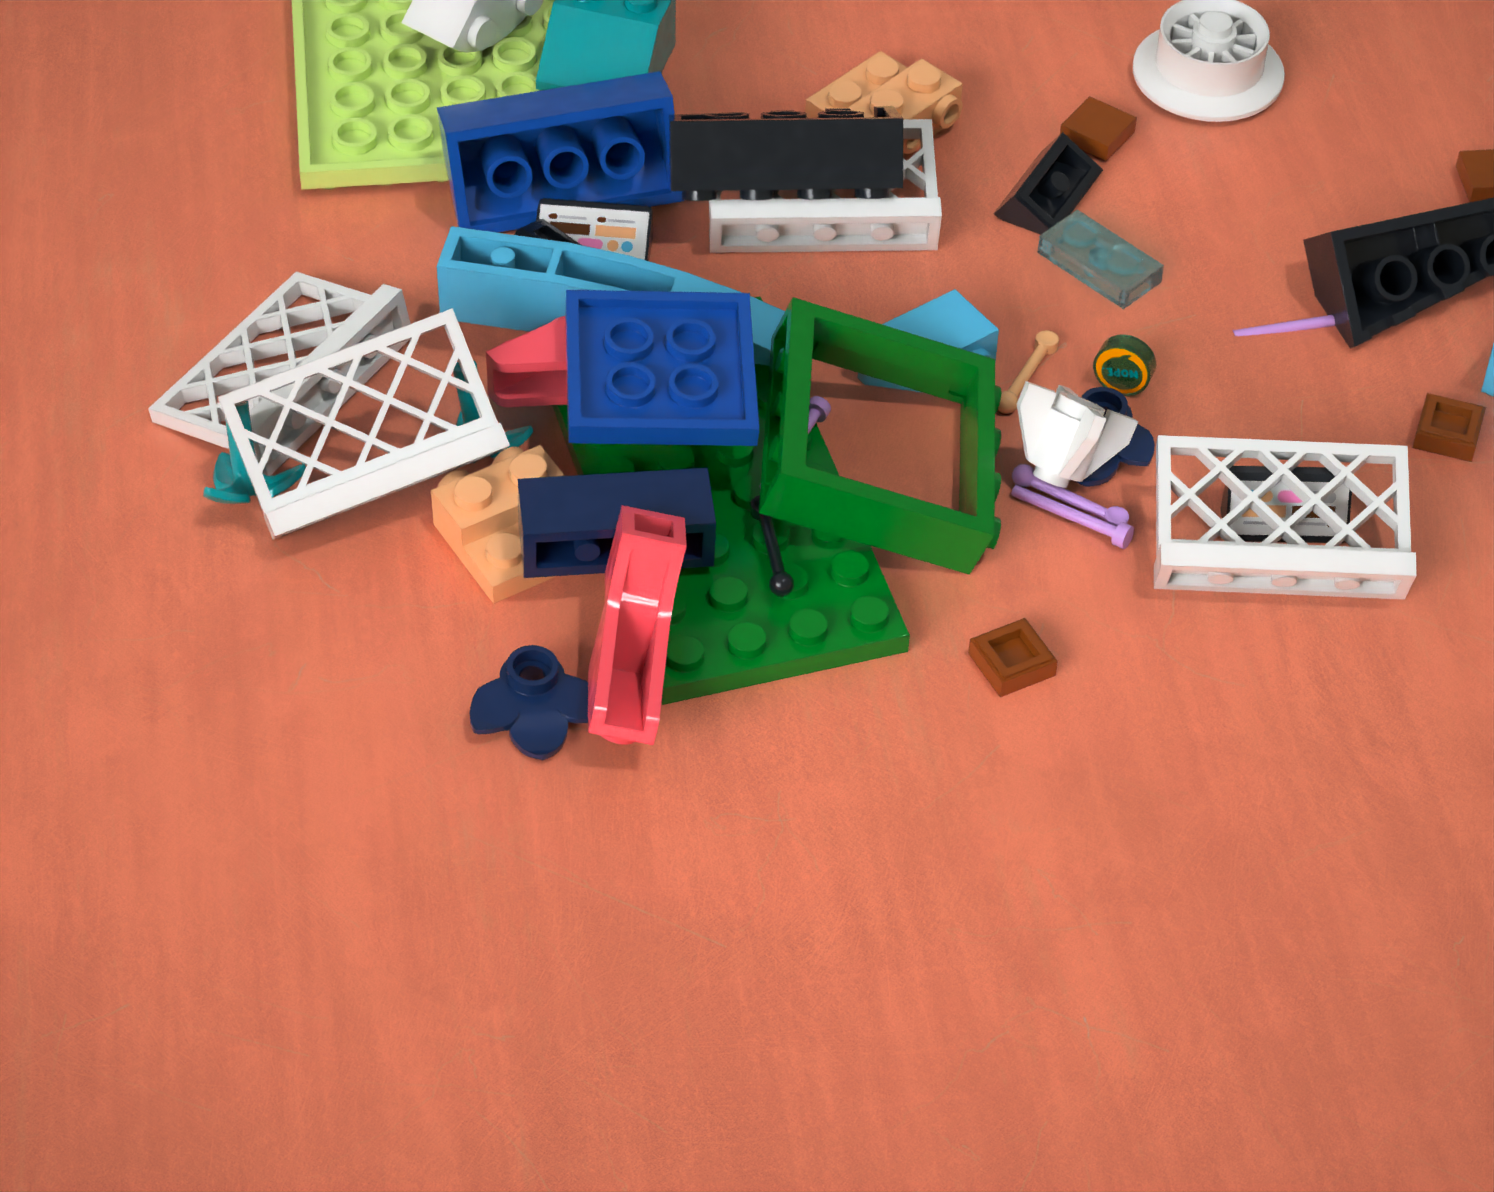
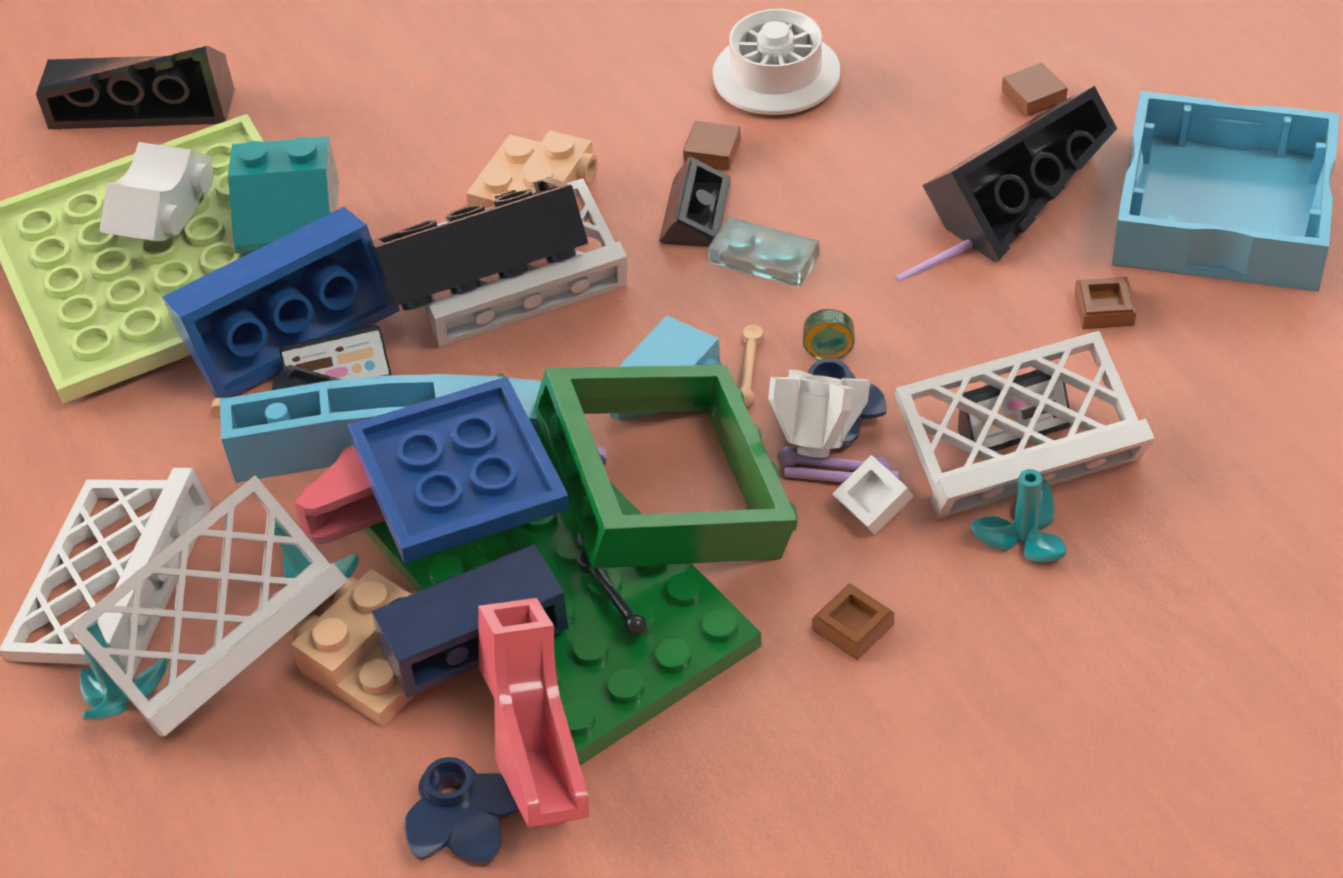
camera: 15 degrees left, 0 degrees up
(1092, 540) = (873, 495): none -> white tile
(1251, 611) = (1032, 512): none -> teal plant

